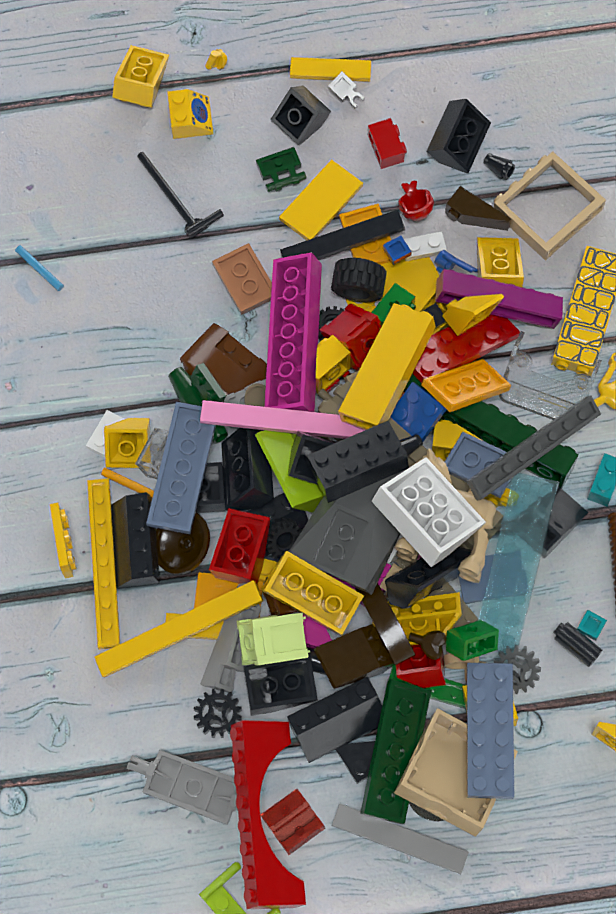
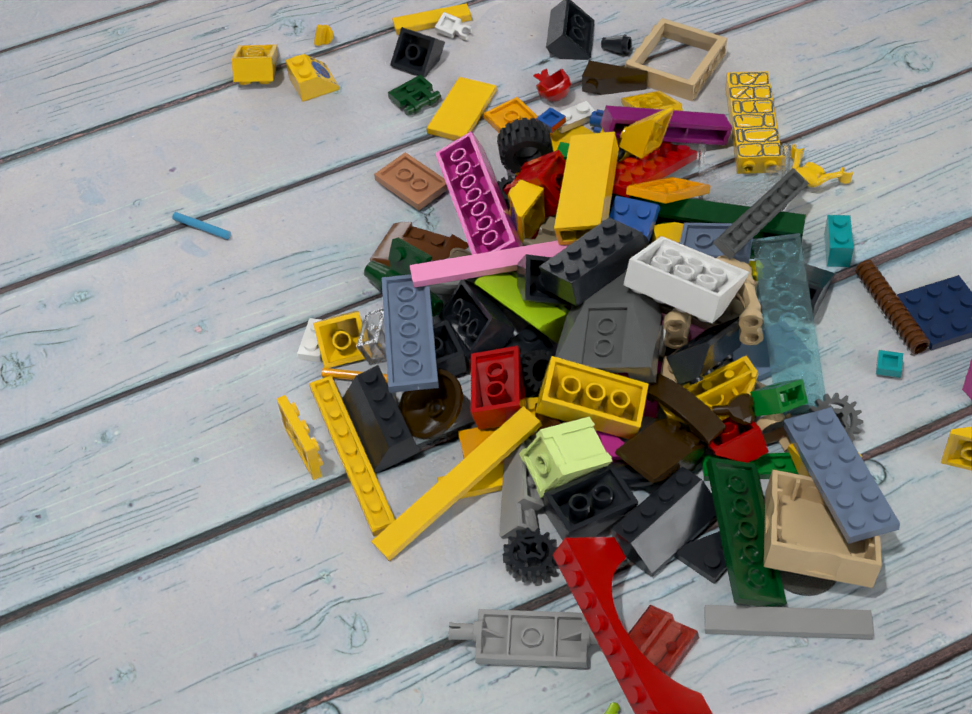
camera: 15 degrees left, 20 degrees down
(193, 226) = (345, 156): black bar -> none
(349, 236) = (524, 108): black tile -> none
(386, 143) = (505, 53): red brick -> none
(577, 643) = (884, 382): black brick -> none

